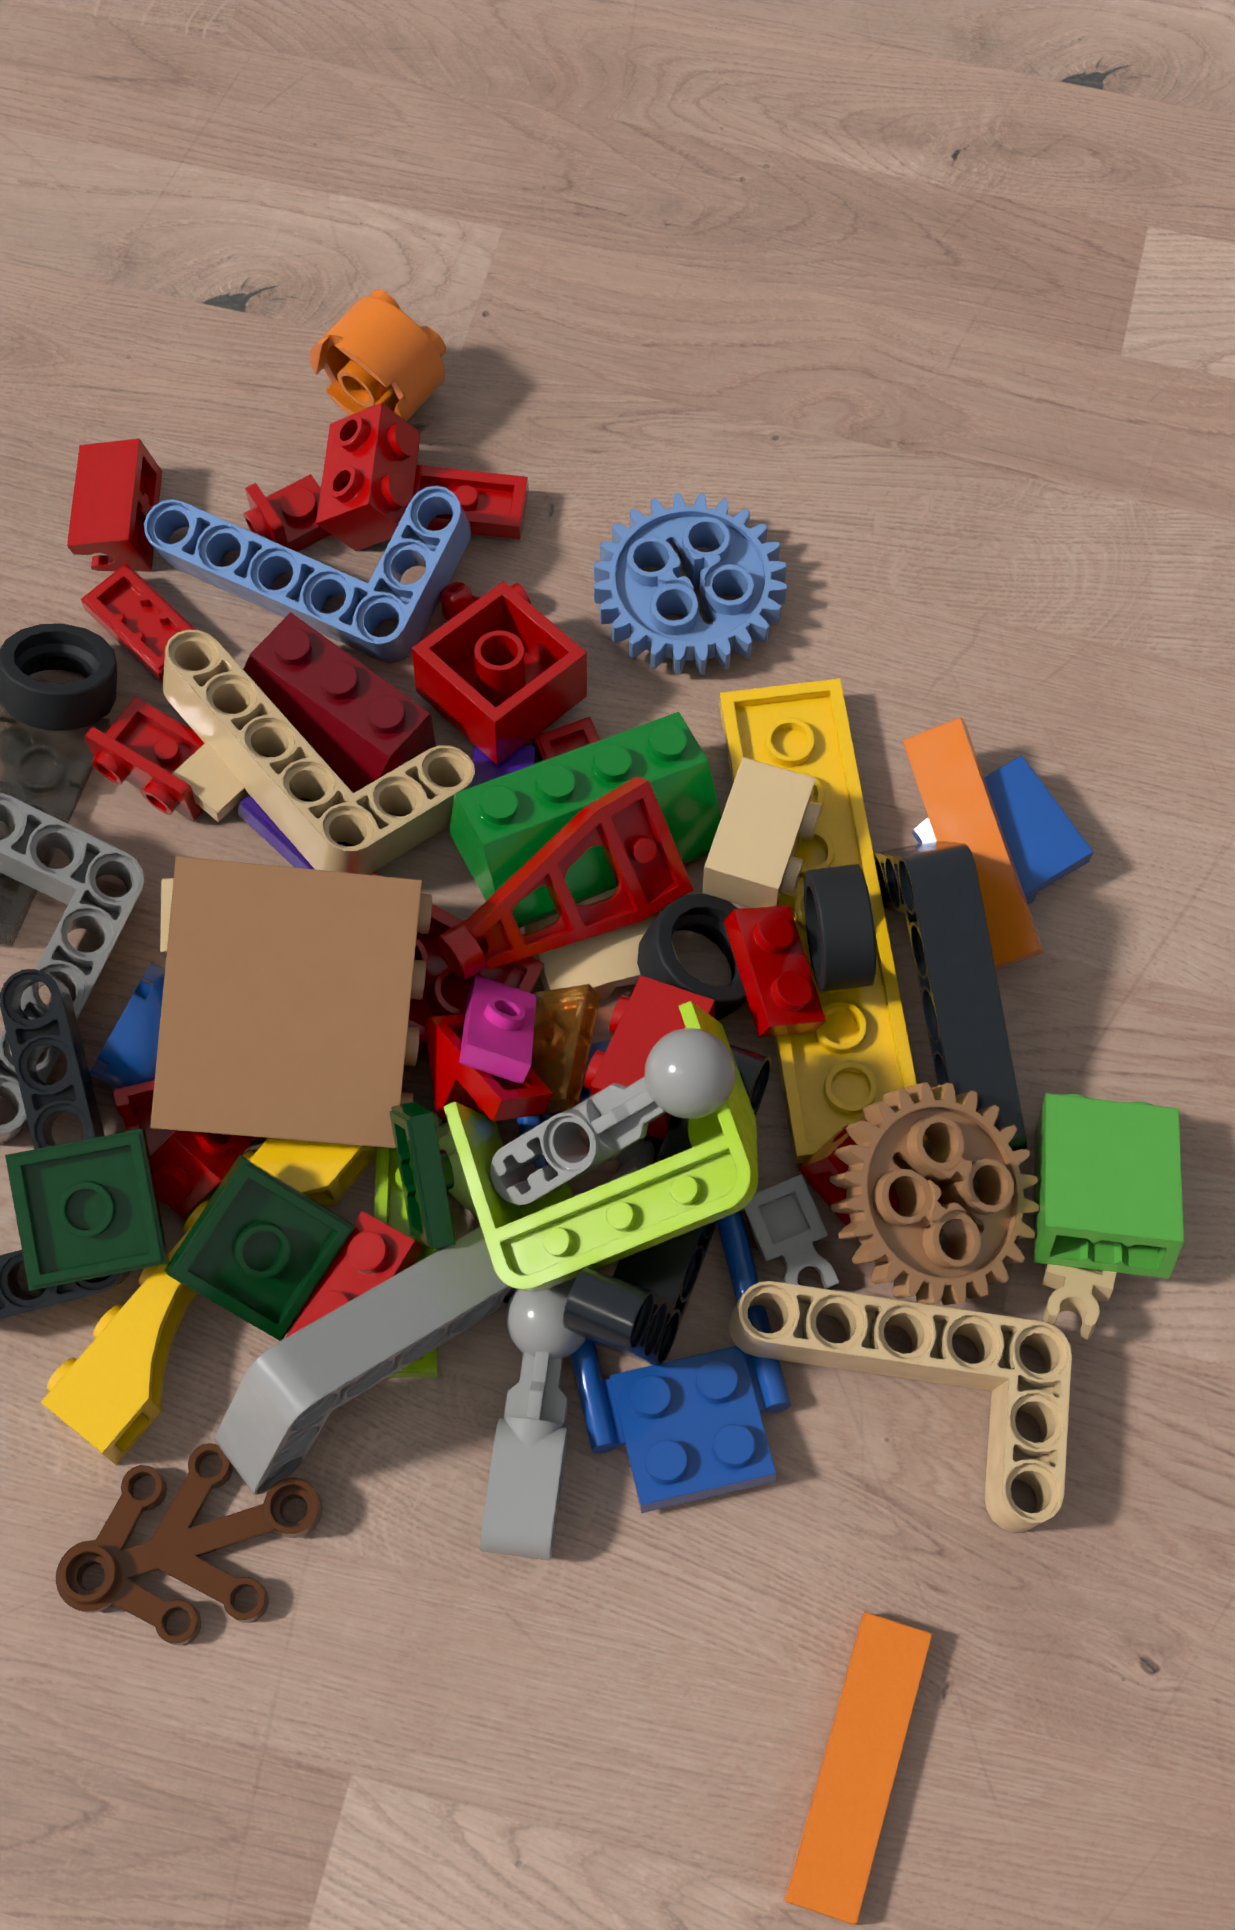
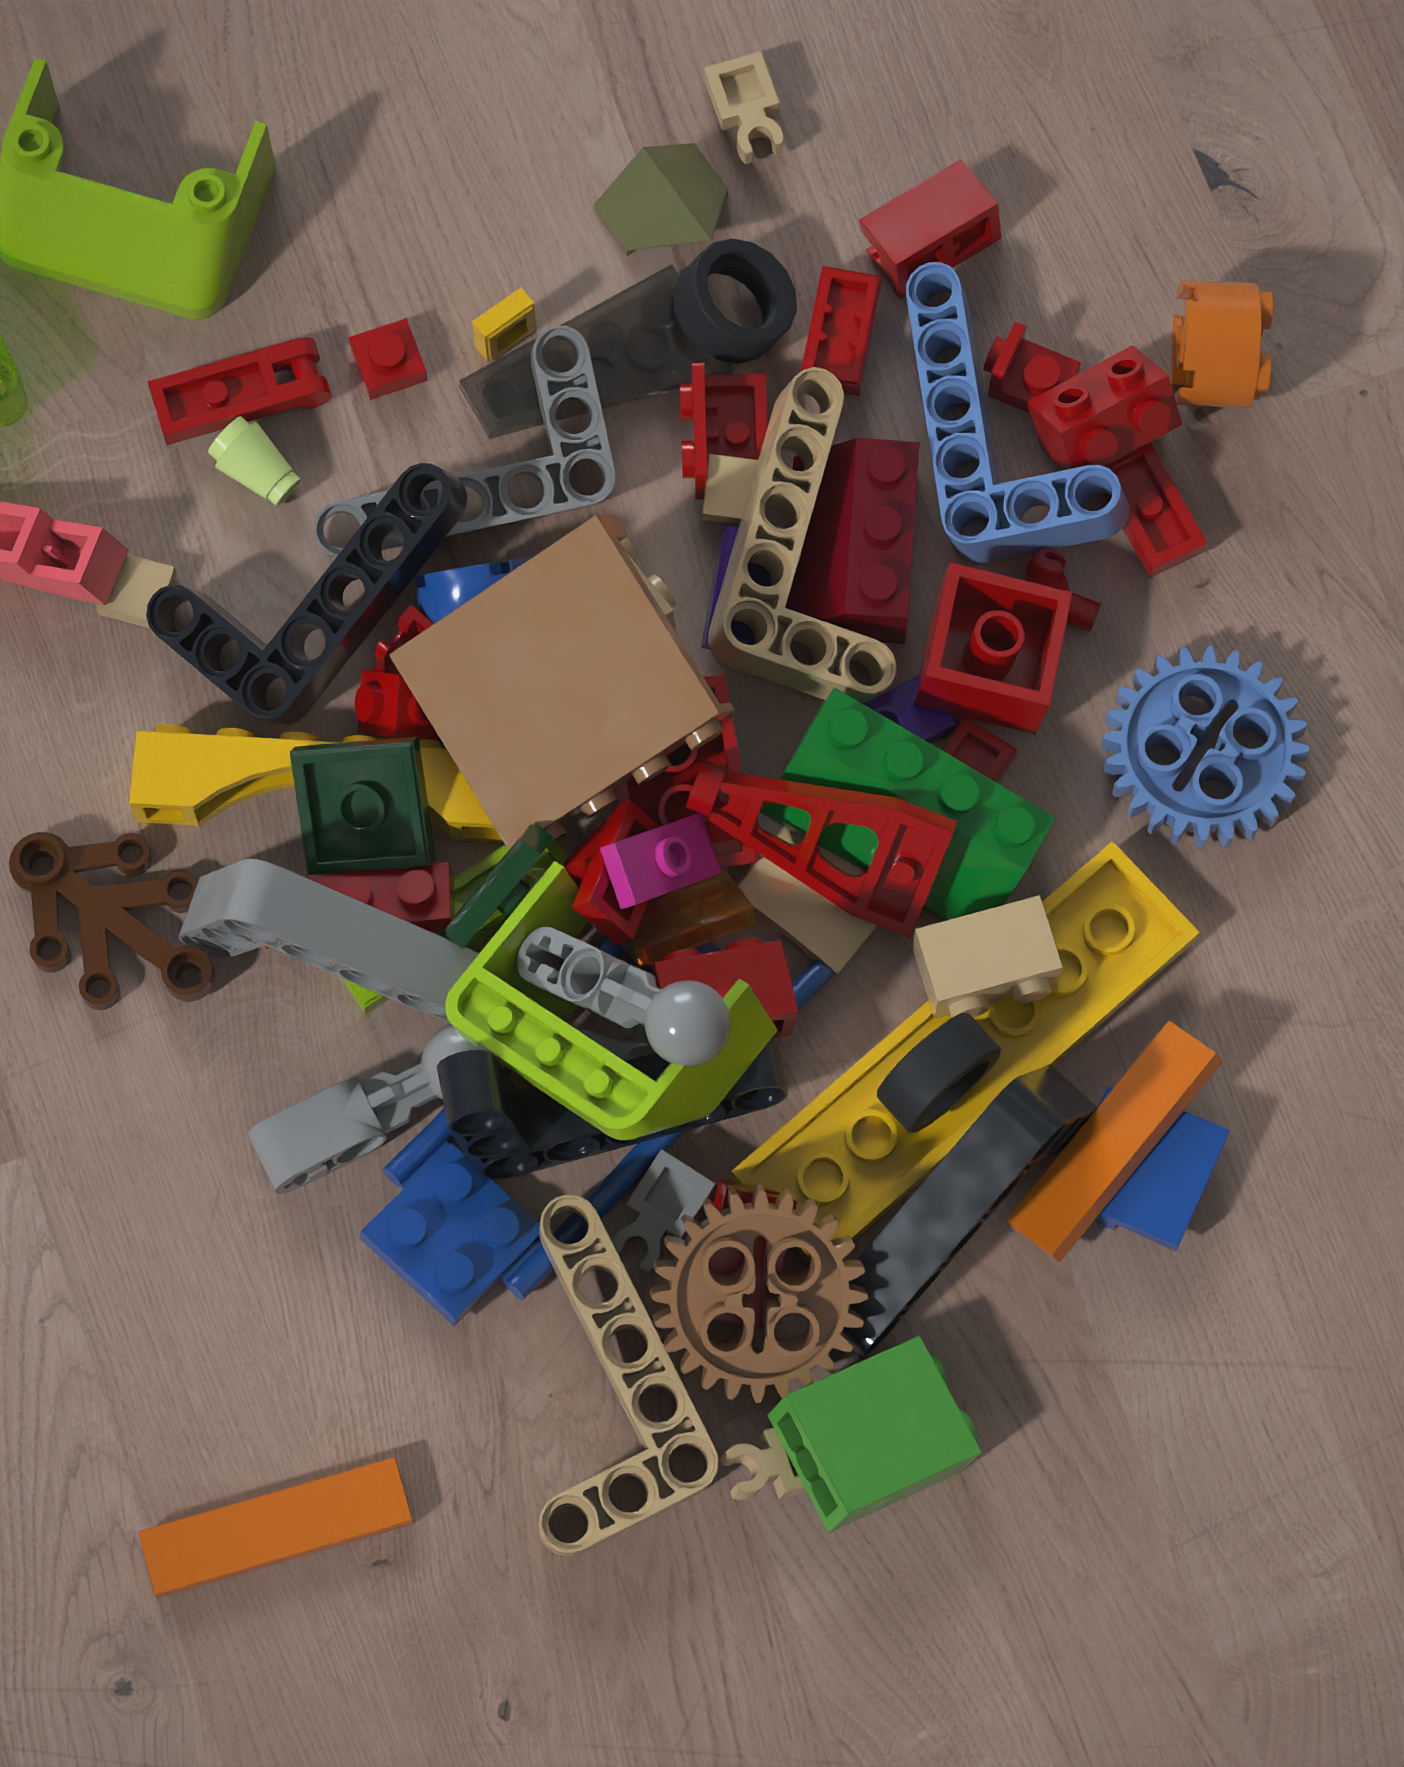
camera: 55 degrees right, 5 degrees up
(87, 1209) = (299, 655): dark green tile -> none
(700, 915) = (897, 983): black tyre -> none
(774, 971) = (873, 1046): red plate -> none

